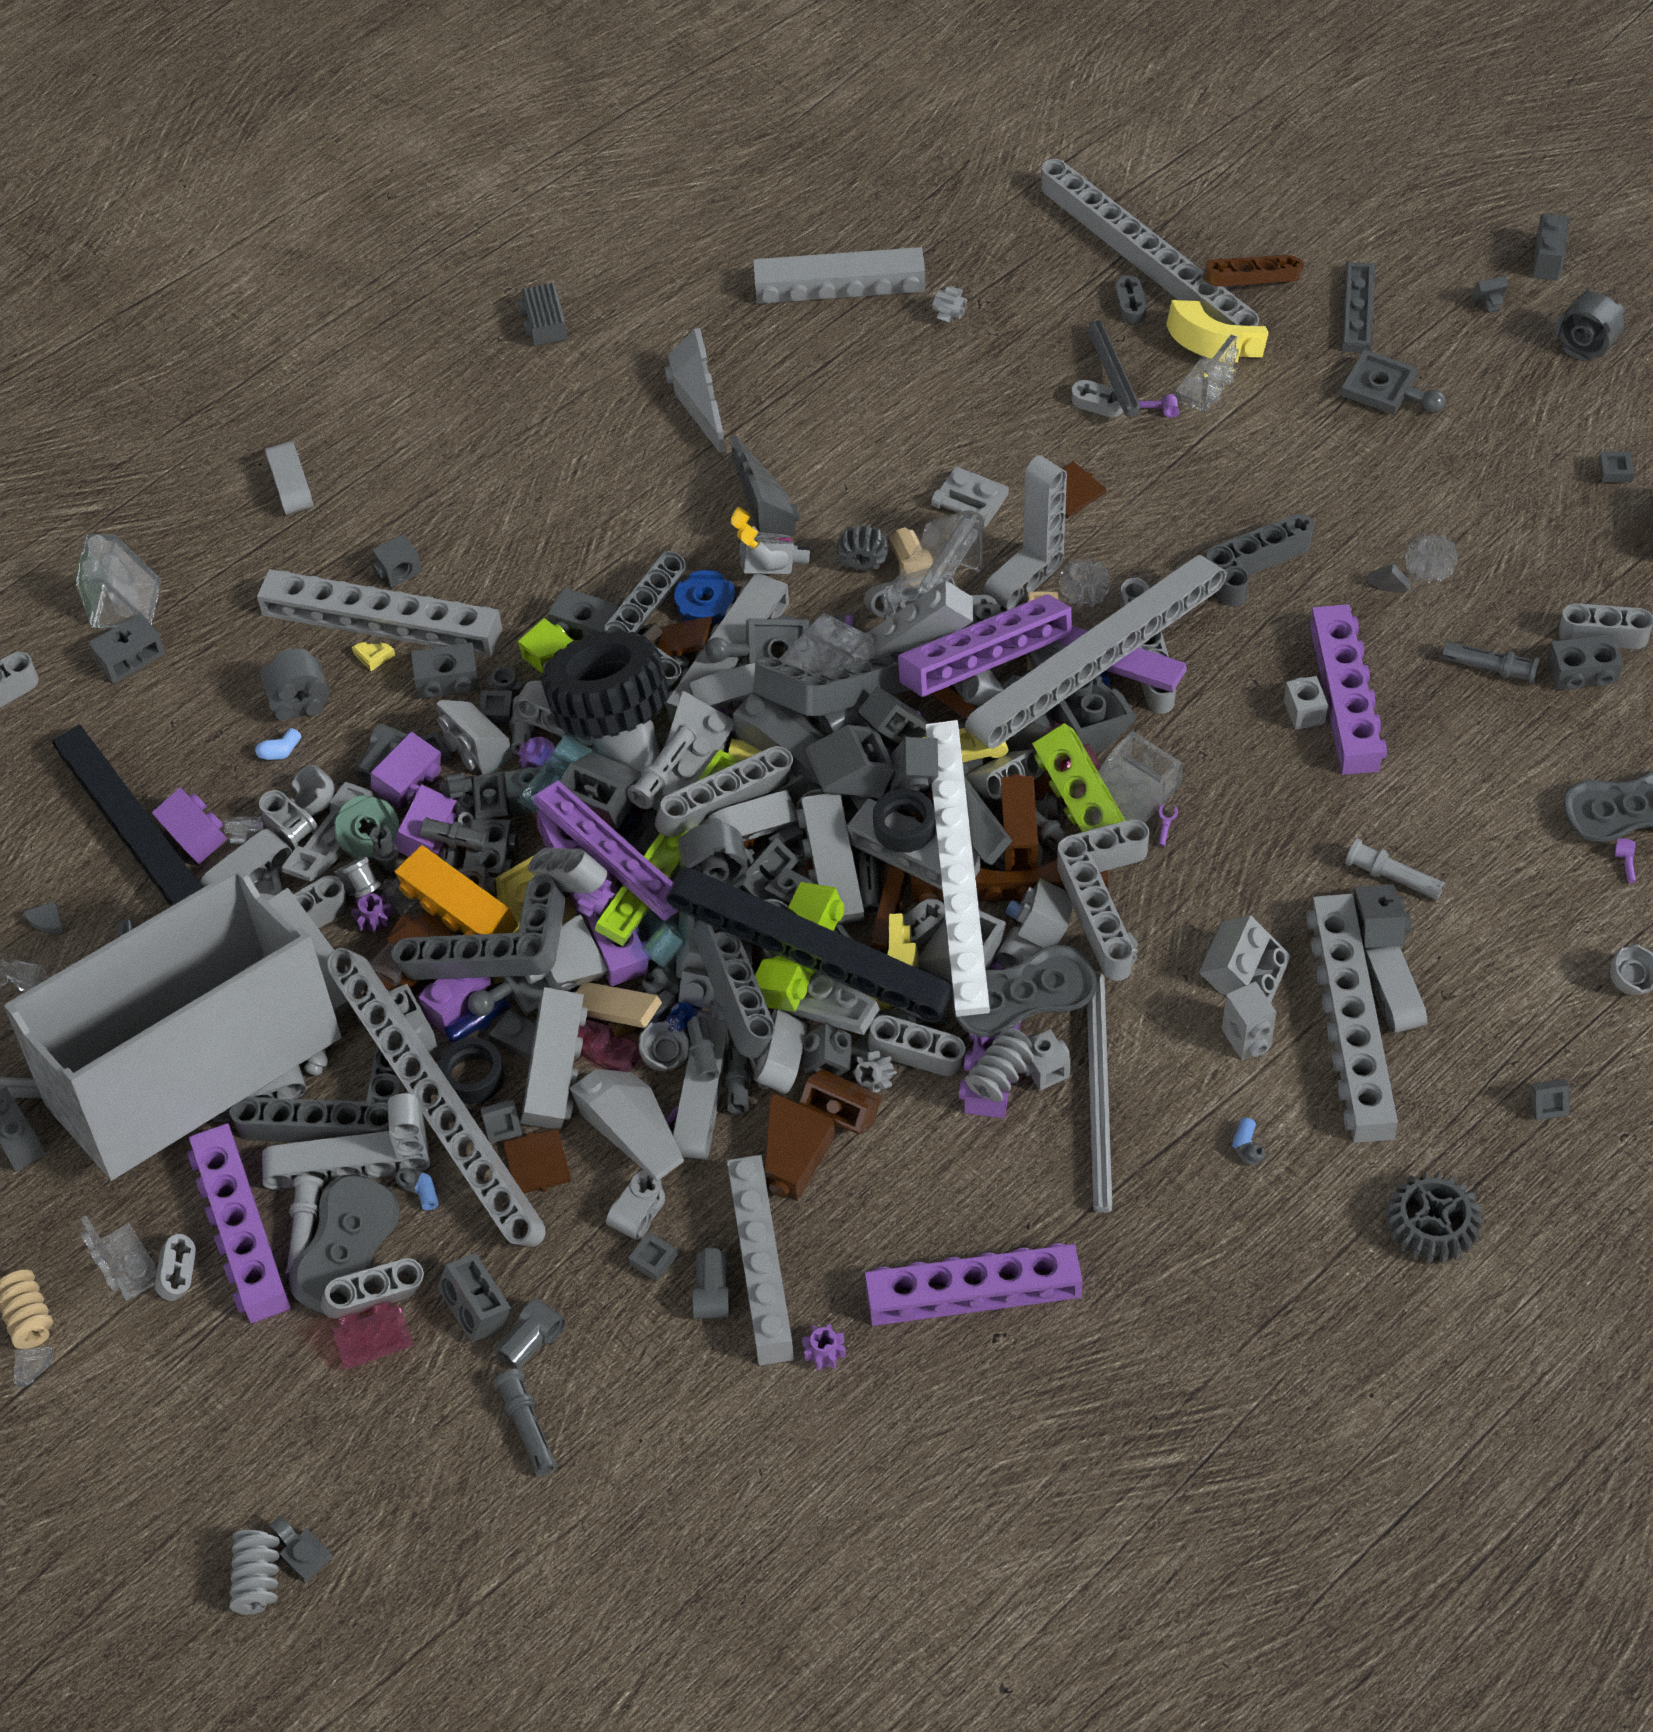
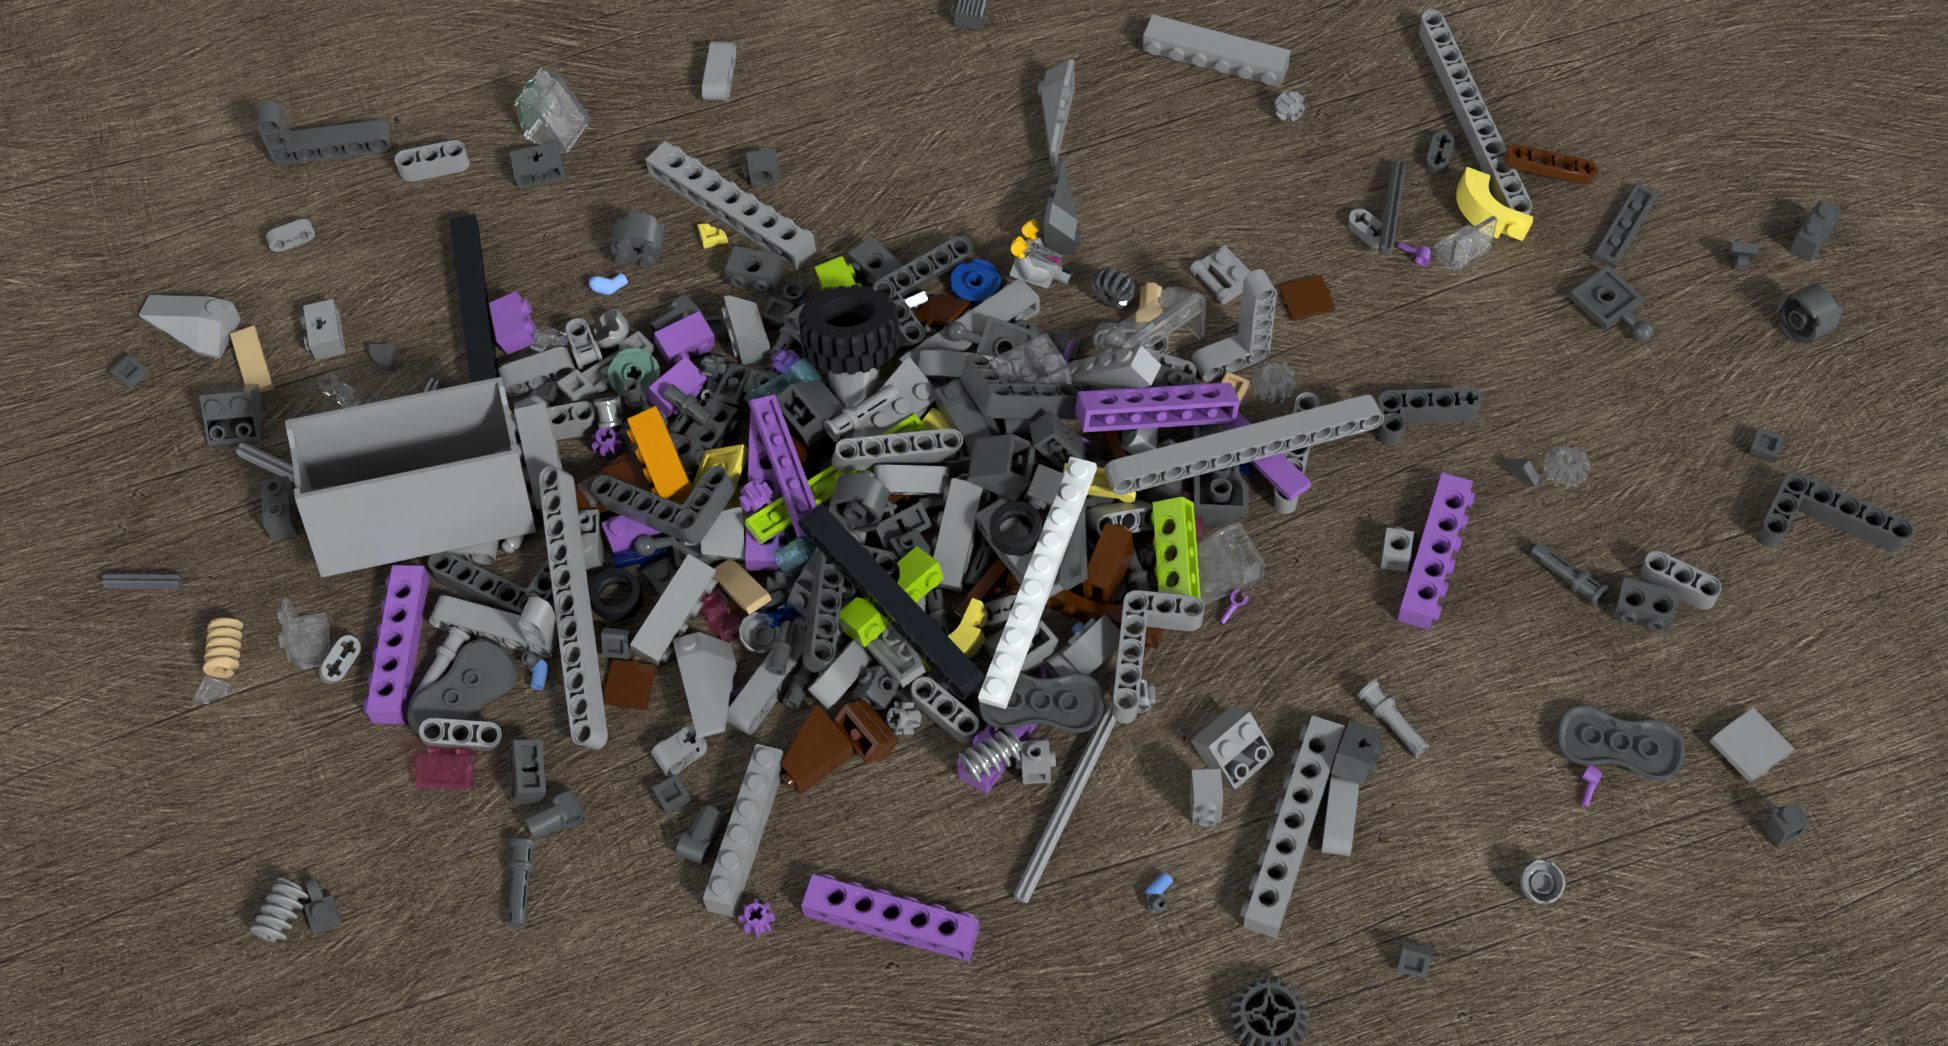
camera: 25 degrees right, 5 degrees up
(570, 869) = (741, 470): light grey beam -> none

